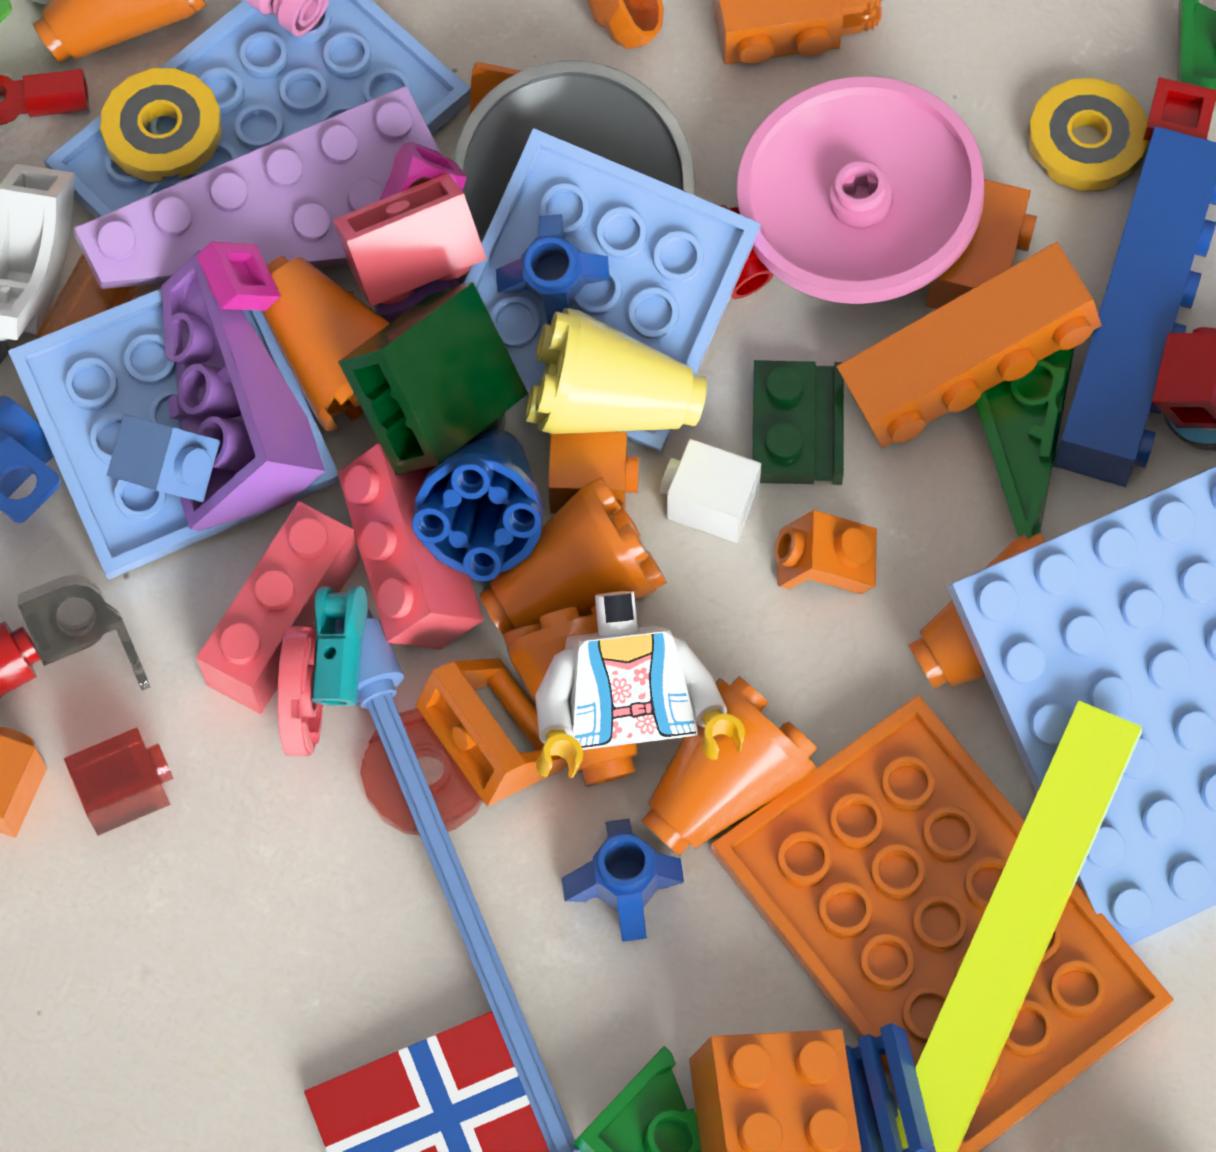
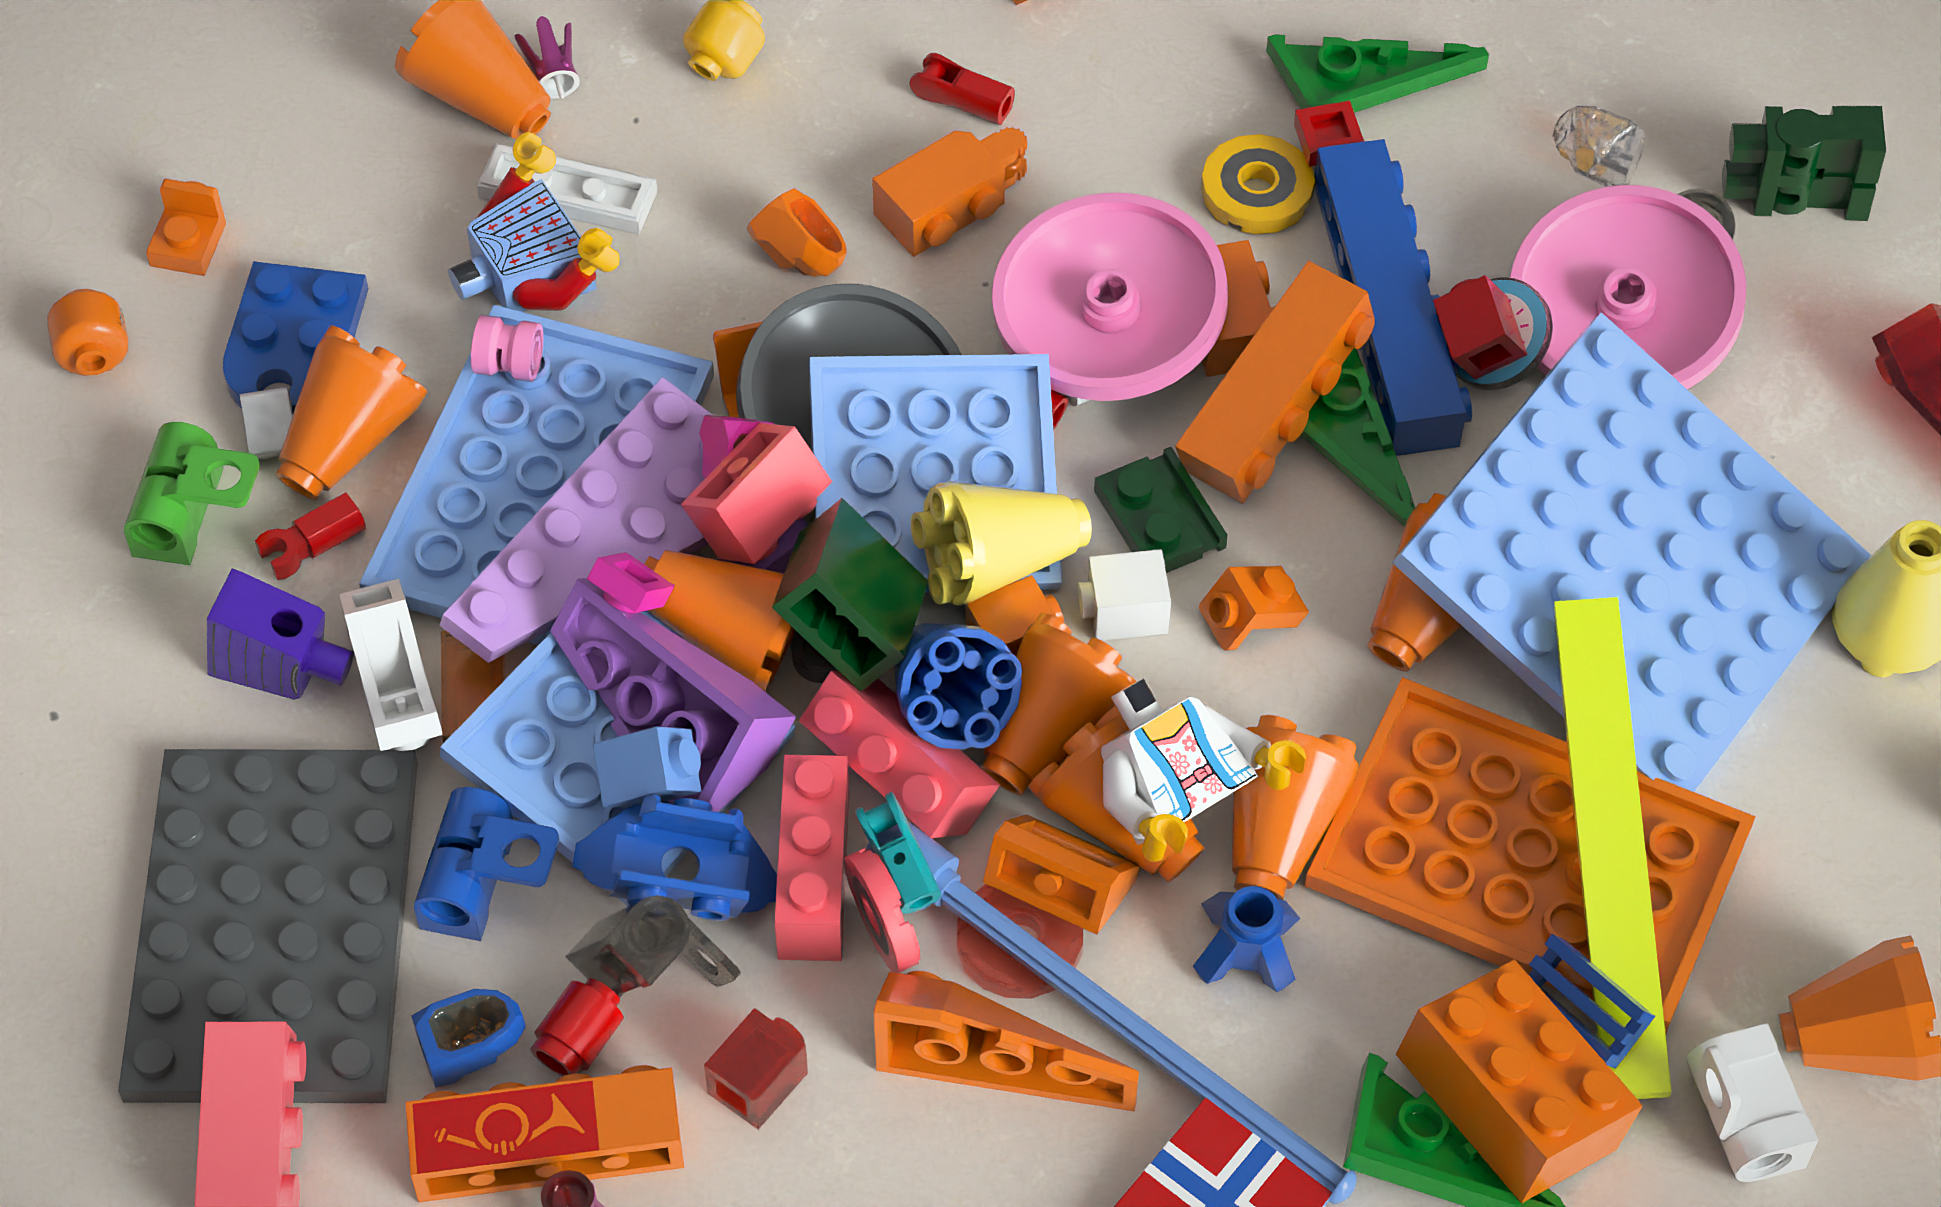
camera: 30 degrees left, 10 degrees down
(114, 526) = (629, 850): none -> blue piece
(154, 95) = (447, 477): yellow tile -> none
(299, 831) = (963, 1038): none -> orange wedge
(552, 268) = (897, 464): blue rock -> none

